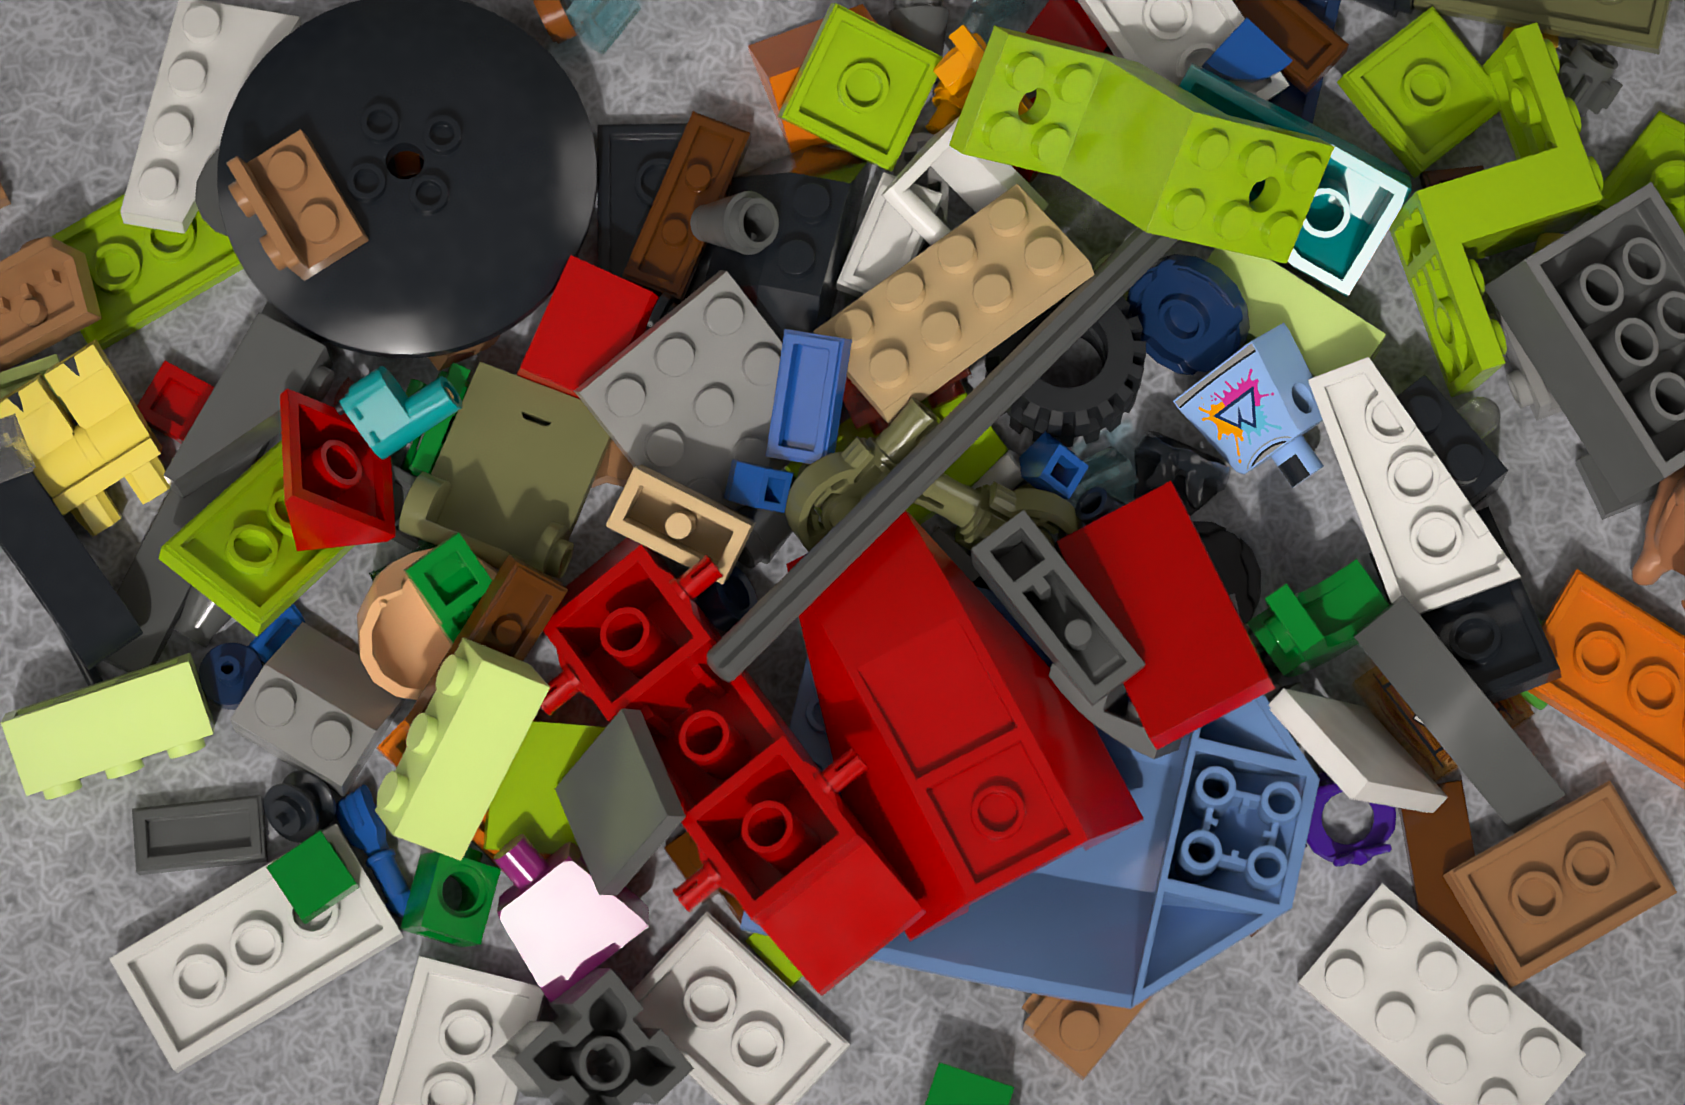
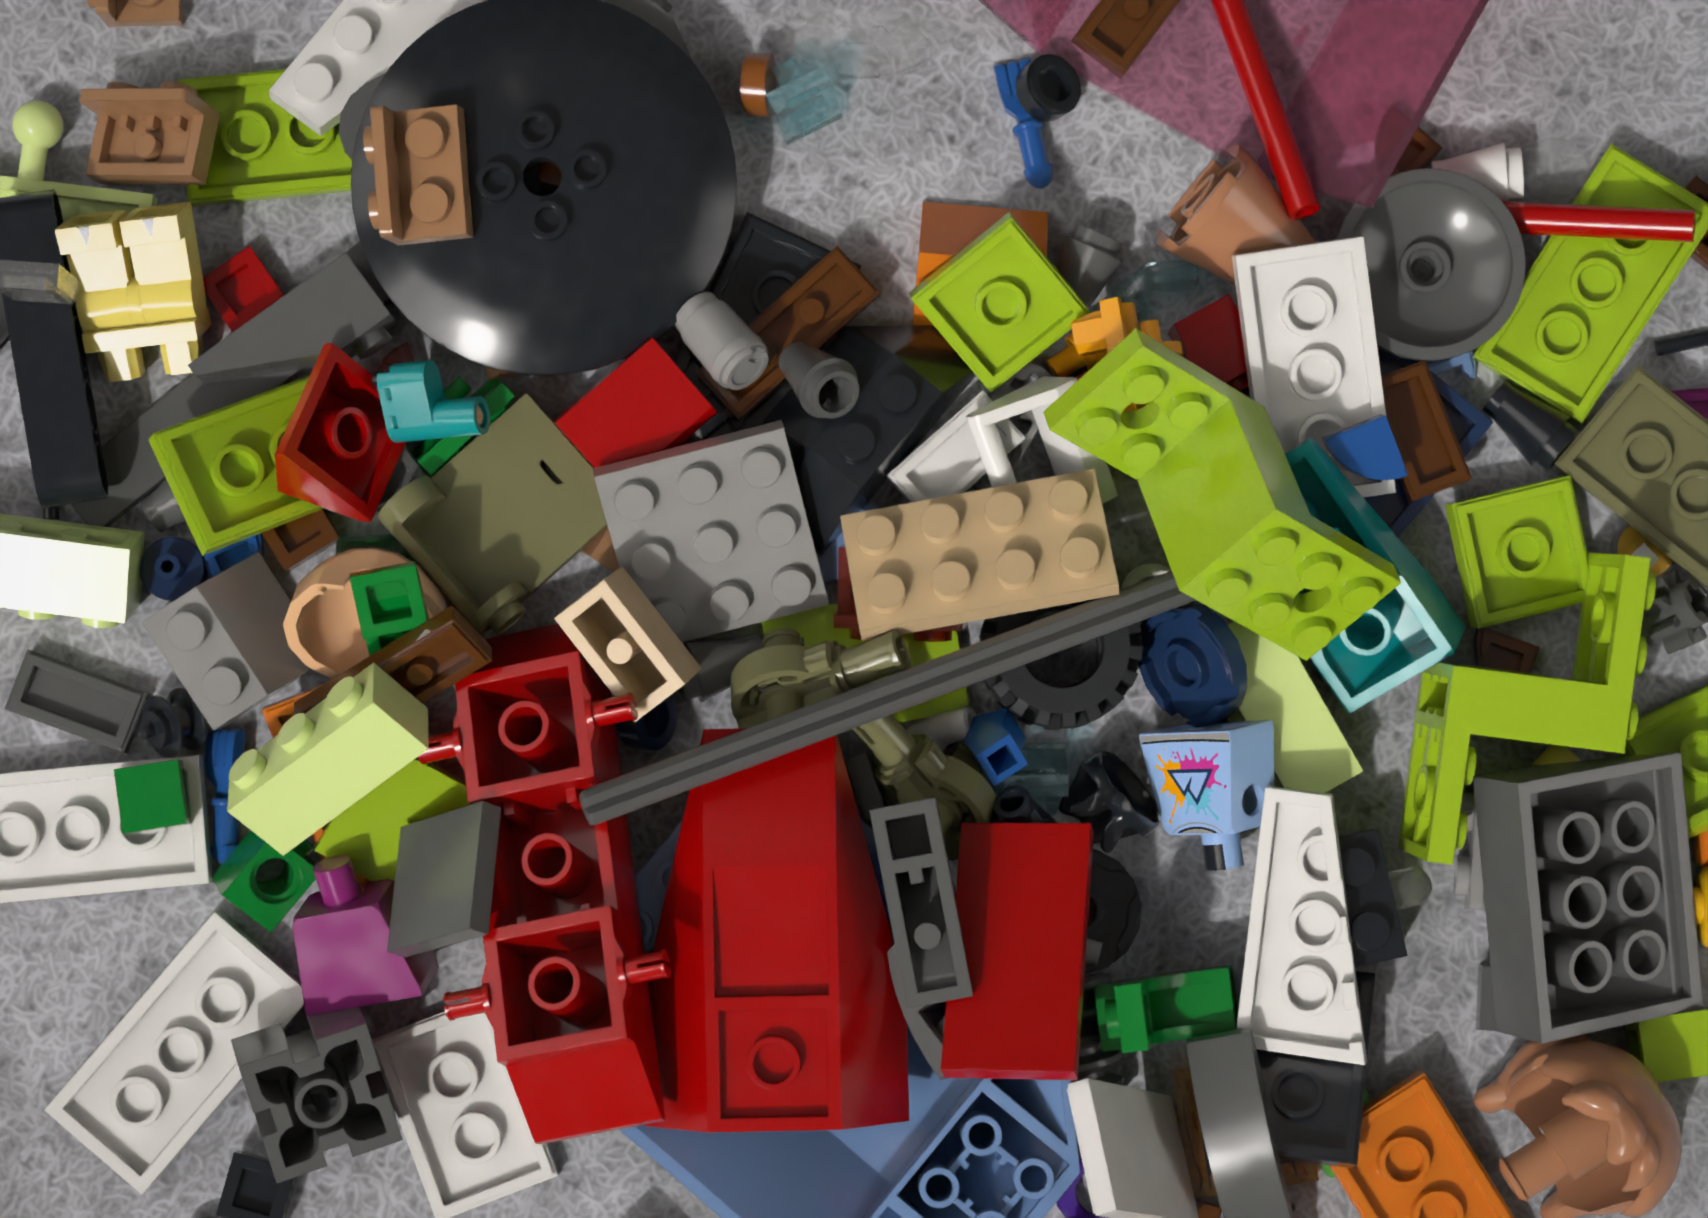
camera: 20 degrees right, 10 degrees up
(335, 593) = (301, 539): none -> reddish brown tile
(633, 233) = (722, 341): none -> light grey piece
(758, 486) = (716, 638): blue piece -> none
(808, 396) = (802, 579): blue tile -> none

